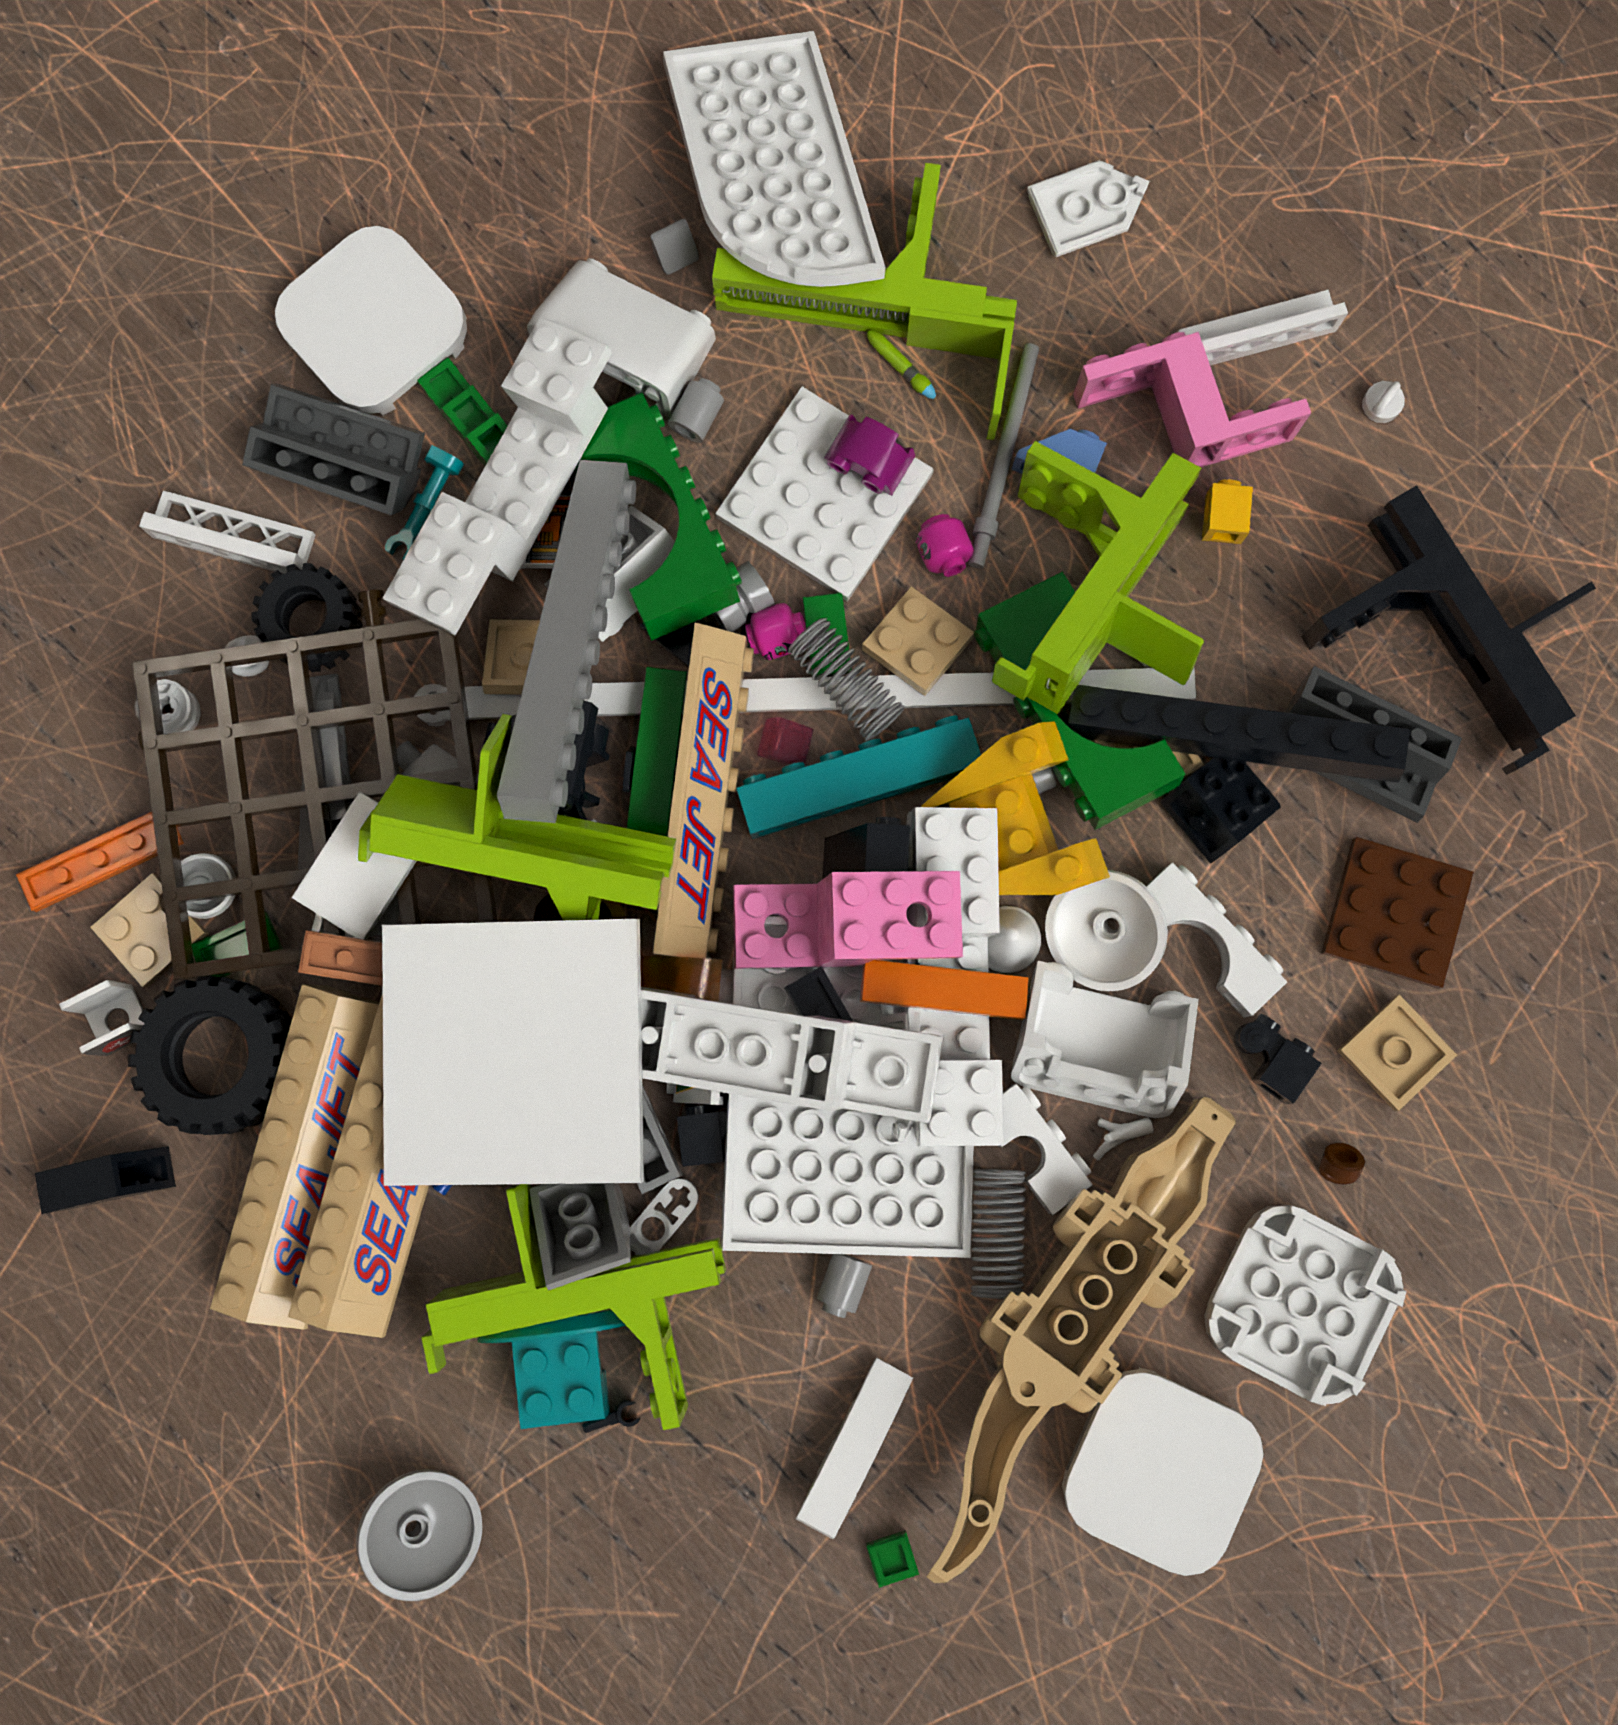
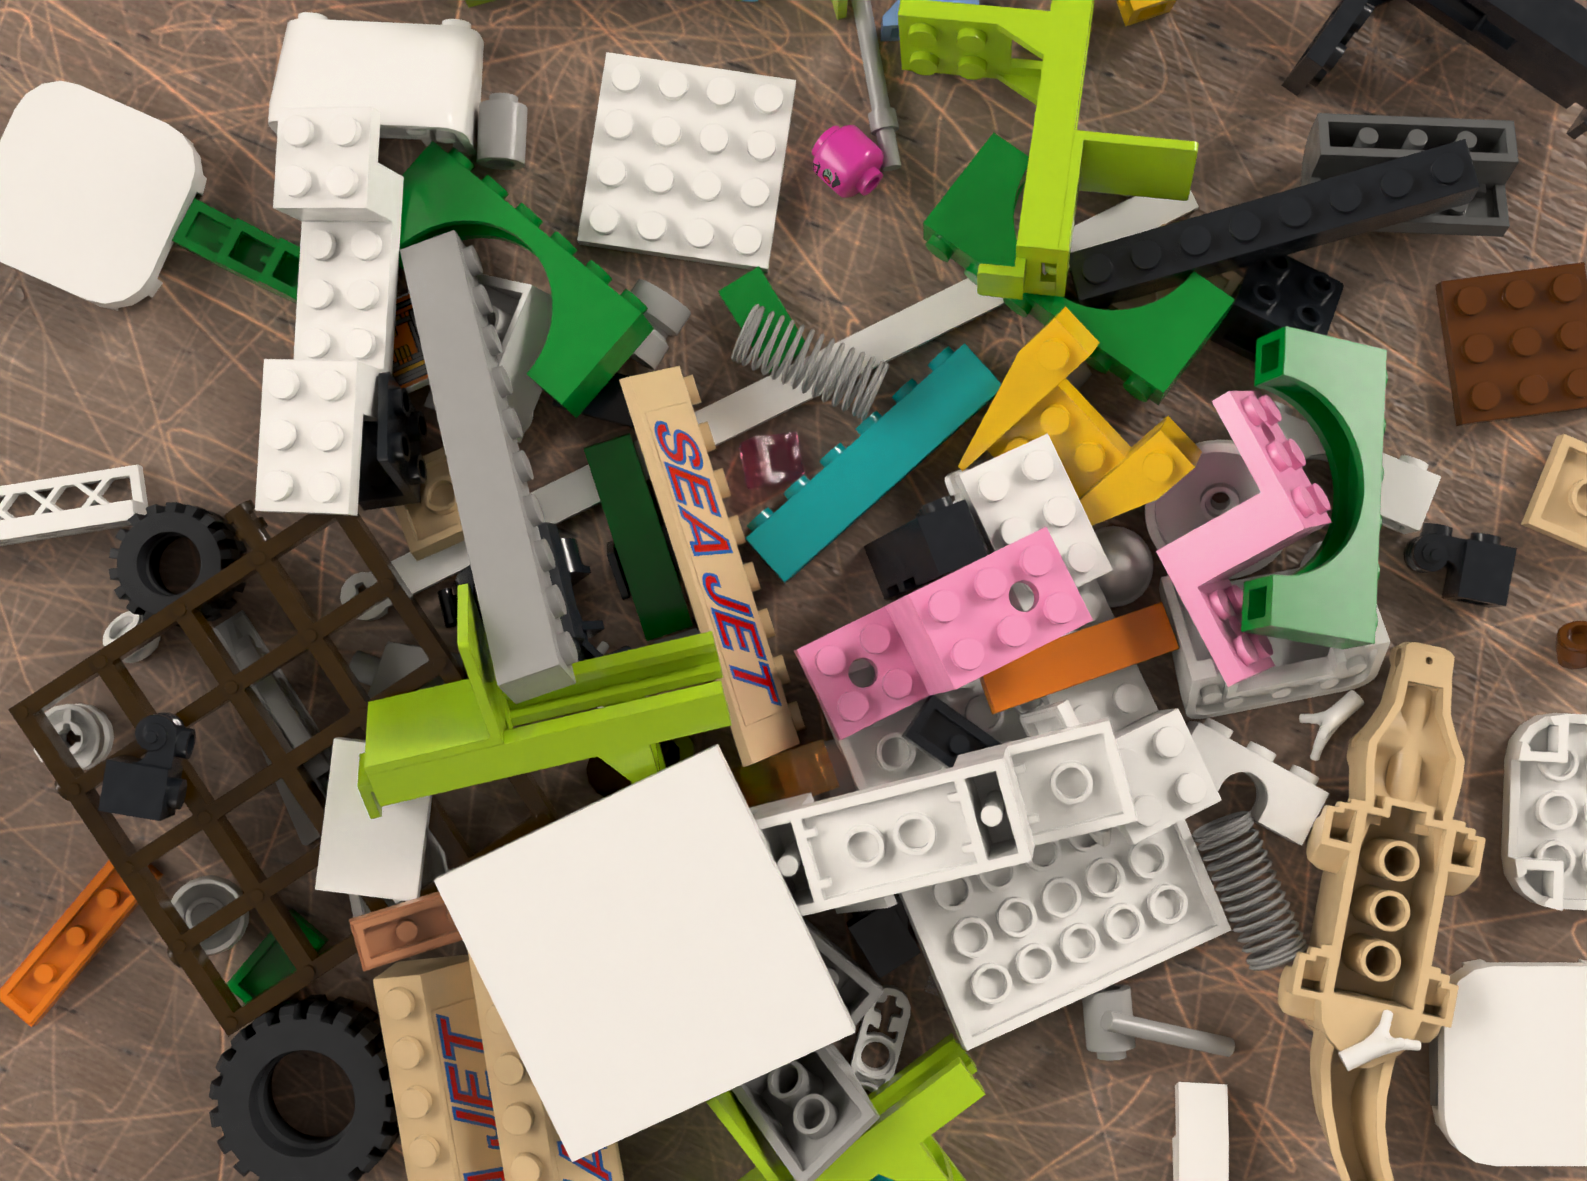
camera: 25 degrees left, 5 degrees up
(97, 1005) = (157, 1097): white piece -> none
(139, 933) = (161, 997): tan plate -> none
(213, 762) = (151, 784): none -> black brick
(336, 450) = (119, 362): dark grey brick -> none
(445, 465) = (248, 375): teal piece -> none
(504, 603) = (392, 450): none -> black bracket
(774, 630) = (705, 342): dark pink head -> none
(871, 452) = (719, 93): magenta cylinder -> none
(884, 1314) = (1167, 1033): none -> light grey bar
(917, 641) = (867, 282): tan plate -> none
(1038, 1389) = (1376, 1045): none -> white bar
(1111, 953) = (1245, 534): none -> bright pink bracket
(1235, 884) = (1343, 399): none -> arch

